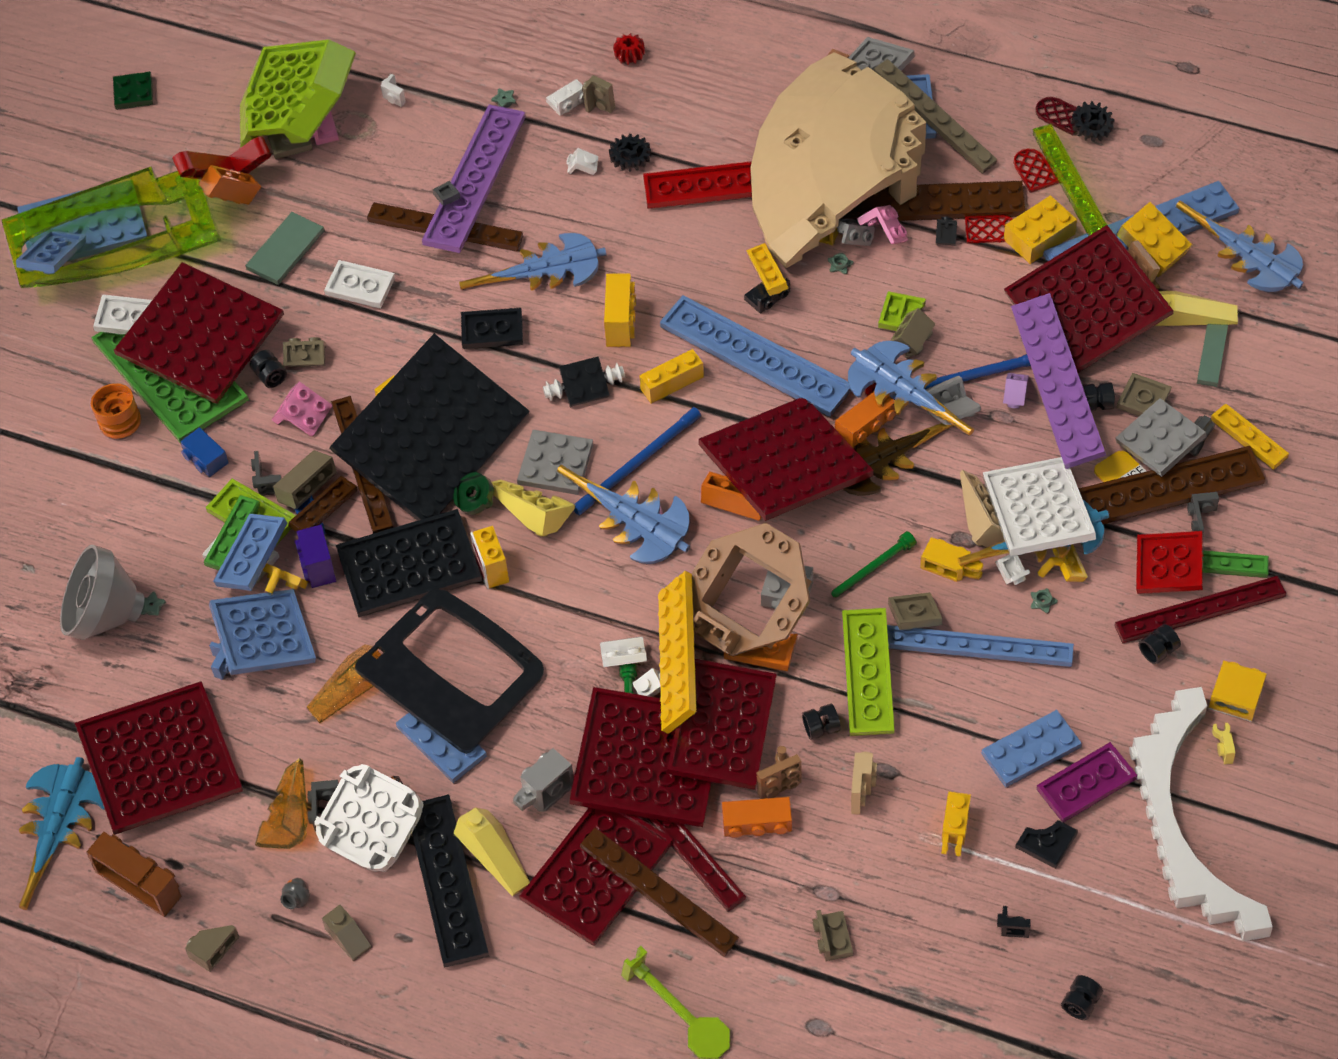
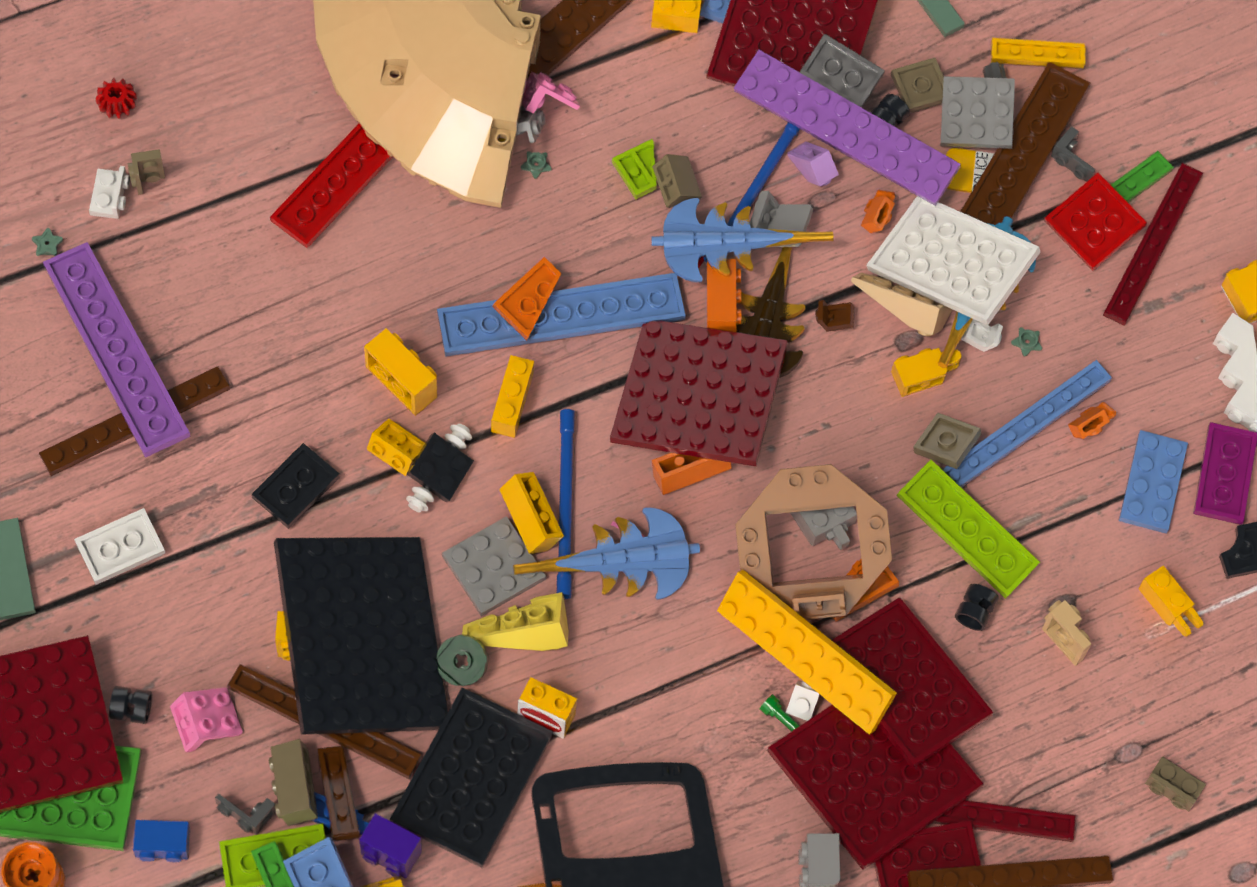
camera: 55 degrees left, 10 degrees up
(304, 353) = (145, 659): dark tan bracket -> none
(446, 193) = (117, 387): dark grey plate -> none
(572, 347) = (395, 446): none -> yellow bracket
(577, 257) = (296, 351): medium blue animal -> none
(583, 161) = (197, 249): white bracket -> none
(606, 446) = (531, 512): none -> yellow brick
(623, 651) = (752, 693): white bracket -> none
(630, 152) = (232, 196): black gear -> none
(742, 326) = (528, 297): none -> orange wing
(757, 817) = (1014, 739): orange brick -> none
(760, 299) = (505, 244): black bracket -> none
(767, 269) = (490, 222): yellow plate -> none
(780, 776) = (1003, 677): medium nougat plate -> none
(905, 541) = (869, 382): green piece -> none
(925, 485) = (835, 316): none -> reddish brown bracket
(946, 231) = (600, 58): black bracket -> none
(981, 229) = (623, 51): red window -> none
(1028, 448) = (878, 211): none -> orange piece
(1028, 678) = (1092, 421): none -> orange piece
(1070, 566) = (1027, 295): yellow plate -> none
(1090, 345) = (842, 71): none -> flat silver plate
(1159, 644) = (1161, 302): black wheel -> none

